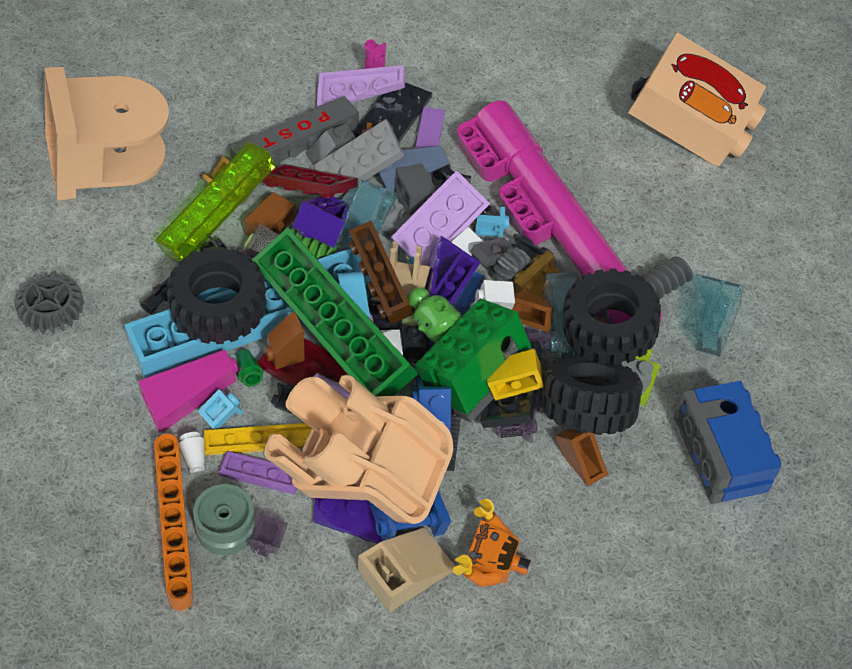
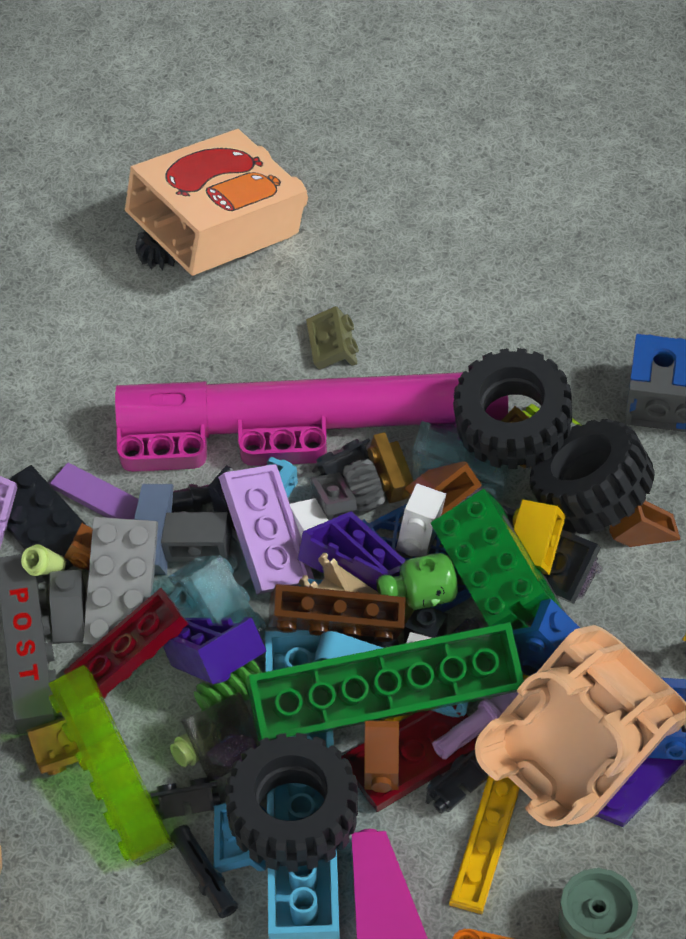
camera: 60 degrees left, 0 degrees up
(192, 449) = (479, 919): white cone -> none
(220, 408) = (429, 872): medium azure bracket -> none
(248, 369) = (381, 818): green cone -> none
(256, 472) = (533, 862): medium lavender tile -> none
(267, 535) = (637, 875): clear purple bracket -> none
(272, 212) = (151, 717): dark orange brick -> none
(350, 115) = (41, 561): none -> yellowish green cone
(634, 213) = (332, 338): none -> olive bracket
(669, 276) = (444, 346): dark grey piece -> none
(715, 311) = (514, 322): clear light blue wedge -> none

